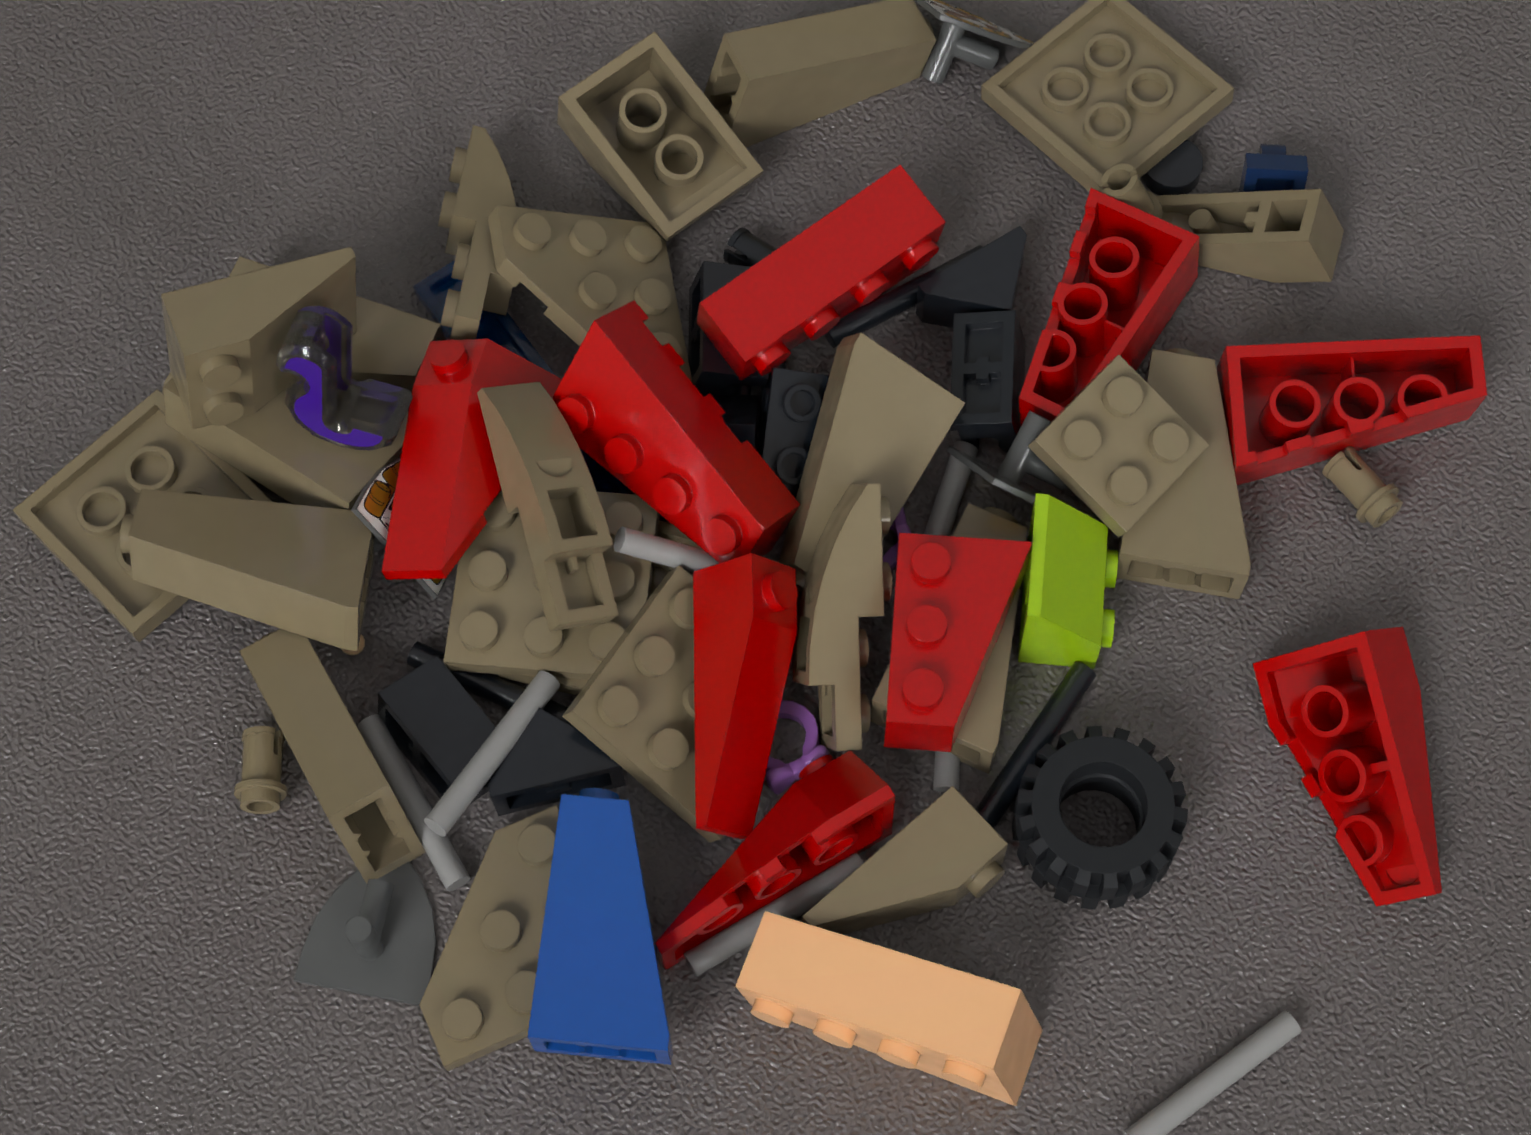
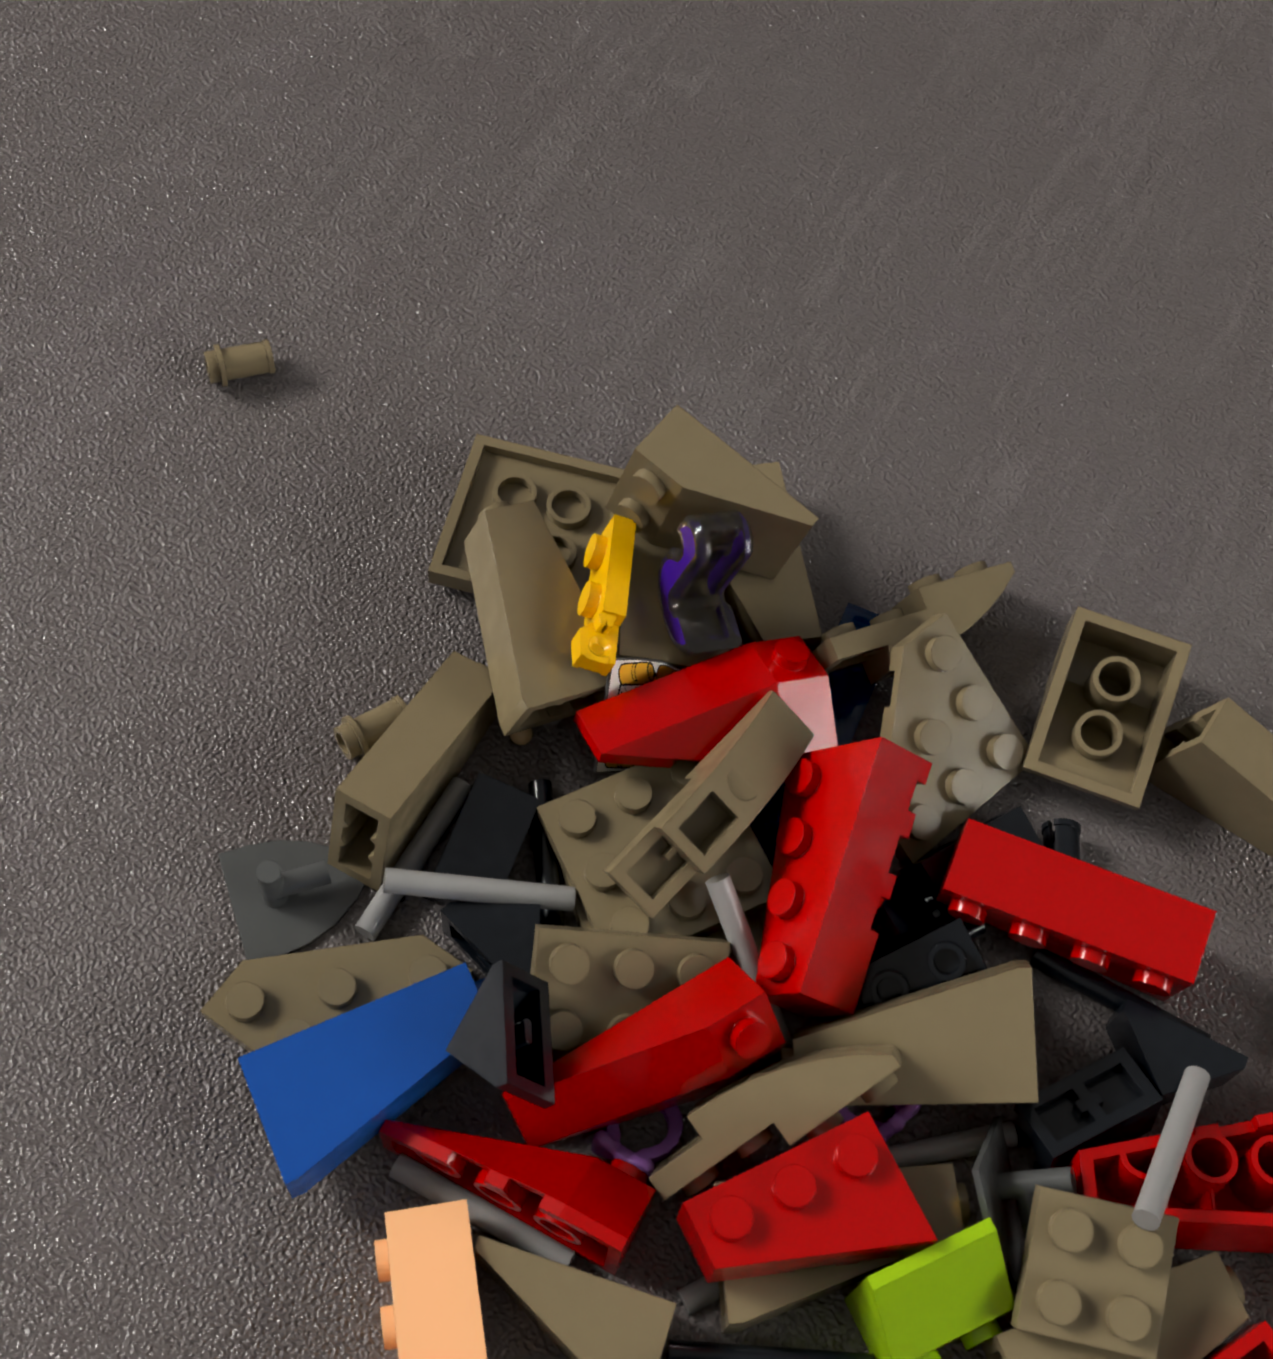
camera: 50 degrees right, 5 degrees down
(287, 477) = (604, 596): none -> yellow hinge
(654, 788) = (509, 1034): none -> black slope
(1061, 325) = (1171, 1149): none -> light grey bar

